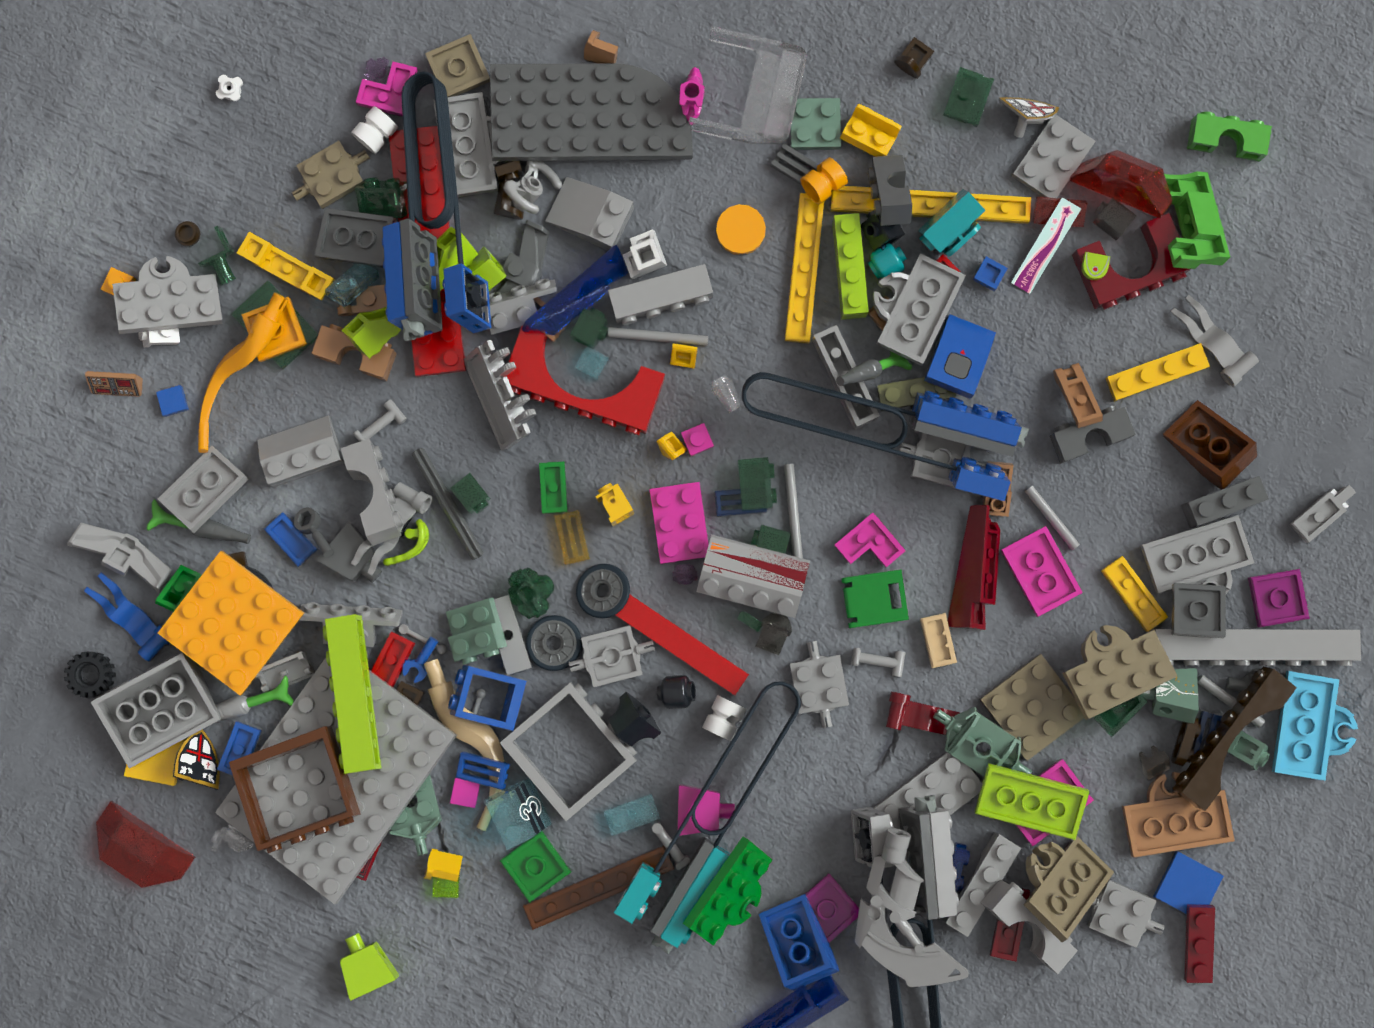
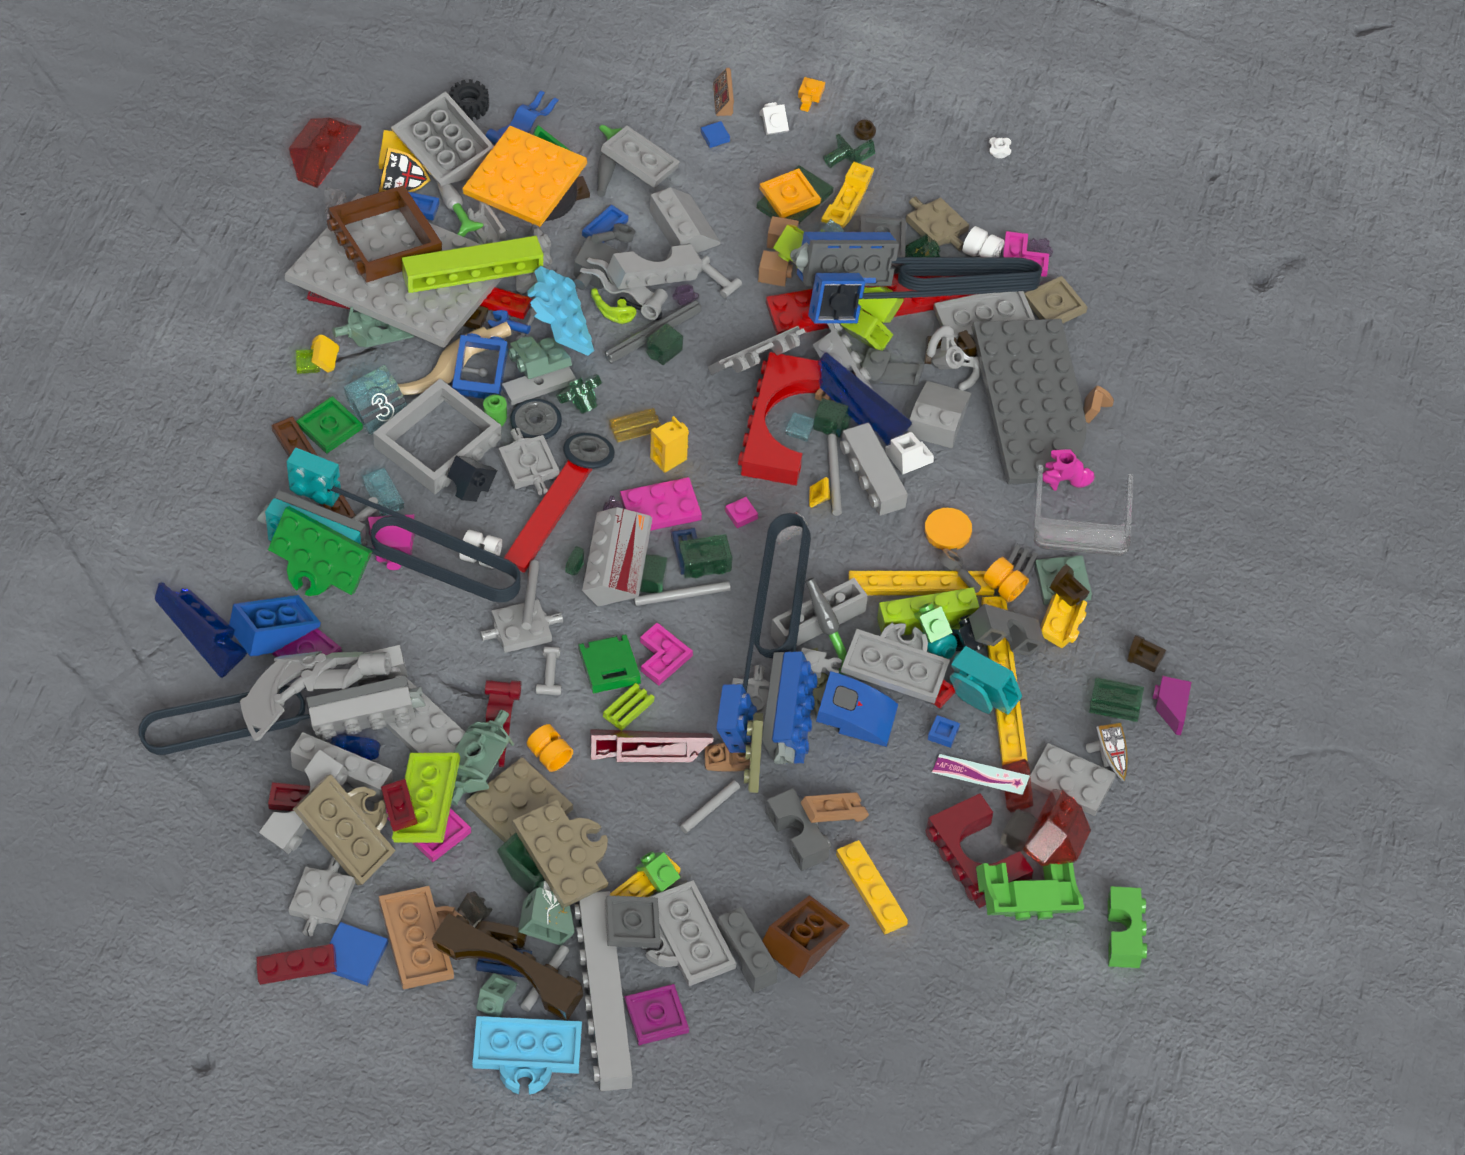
camera: 80 degrees right, 30 degrees down
(121, 553) = (577, 110): light grey plate -> none
(166, 299) = (802, 116): light grey plate -> none
(259, 336) = (783, 177): light orange animal -> none
(365, 967) = (229, 307): lime torso -> none
(398, 467) = (685, 294): none -> clear purple plate
(417, 601) = (560, 307): none -> medium azure plate
(465, 793) = (394, 364): dark pink tile -> none
(502, 775) = (402, 383): blue tile -> none
(553, 487) = (679, 405): green plate -> none
(553, 686) = (496, 408): none -> bright green brick
(671, 446) = (732, 489): yellow slope -> none
(676, 692) = (501, 511): black head -> none
(774, 633) = (565, 582): clear smoke tile -> none
(789, 671) = (530, 595): none -> light grey bar
(792, 229) = (954, 562): none -> dark grey piece
(841, 118) = (1068, 586): none -> dark brown tile
(878, 263) = (933, 621): none -> bracket
(903, 390) = (819, 663): none -> light grey plate
(936, 578) = (639, 694): none -> lime tile
(938, 640) = (575, 717): tan plate -> none
(977, 670) = (550, 747): none -> light orange wheel
(980, 41) = (1172, 701): none -> magenta slope
(1018, 465) = (753, 752): none -> olive tile
(1041, 571) = (654, 798): dark pink plate -> none
(1047, 830) = (399, 805): none -> dark red plate
(1095, 265) = (965, 806): lime tile -> none
(1129, 579) = (658, 870): none -> bright green bracket
(1219, 344) = (907, 936): light grey flag -> none
(1322, 513) = (750, 1044): light grey hinge -> none

